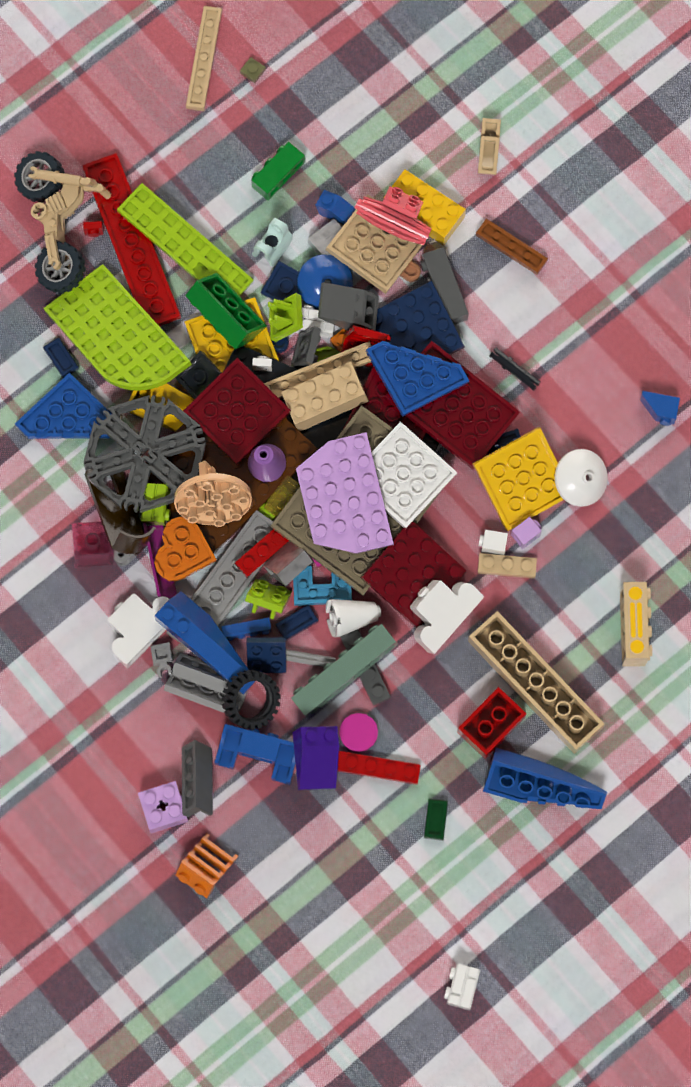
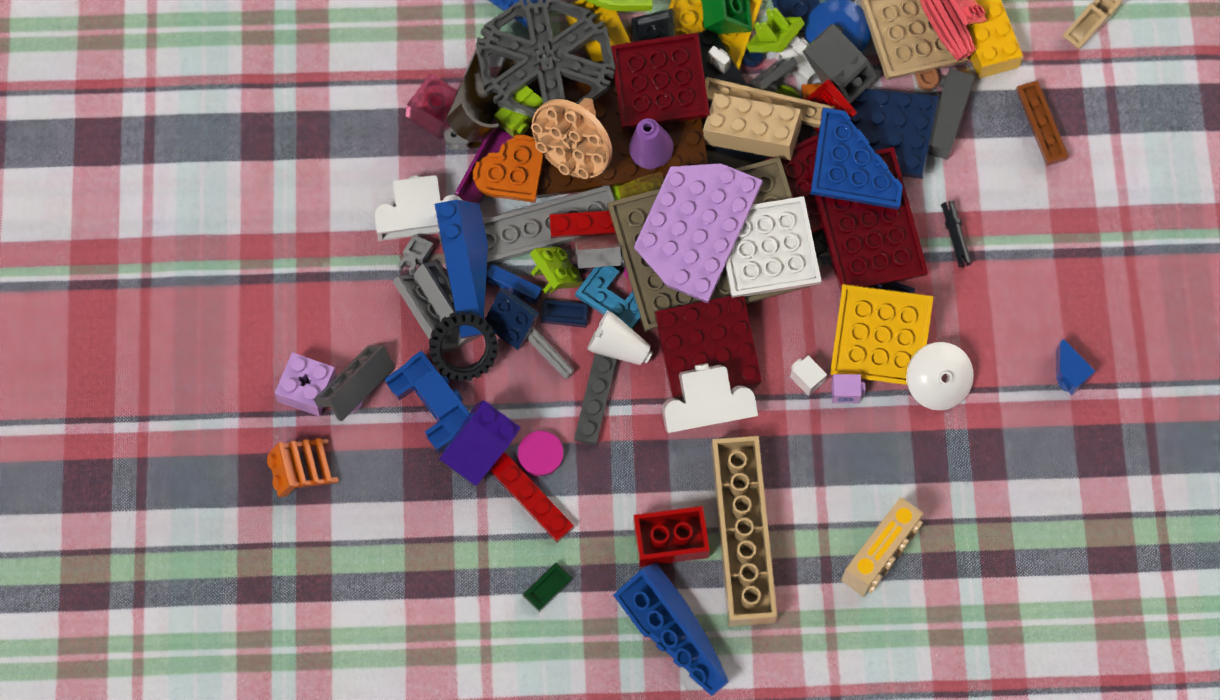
camera: 35 degrees right, 5 degrees down
(344, 670) = (571, 385): sand green brick -> none
(507, 565) = (804, 406): tan plate -> none

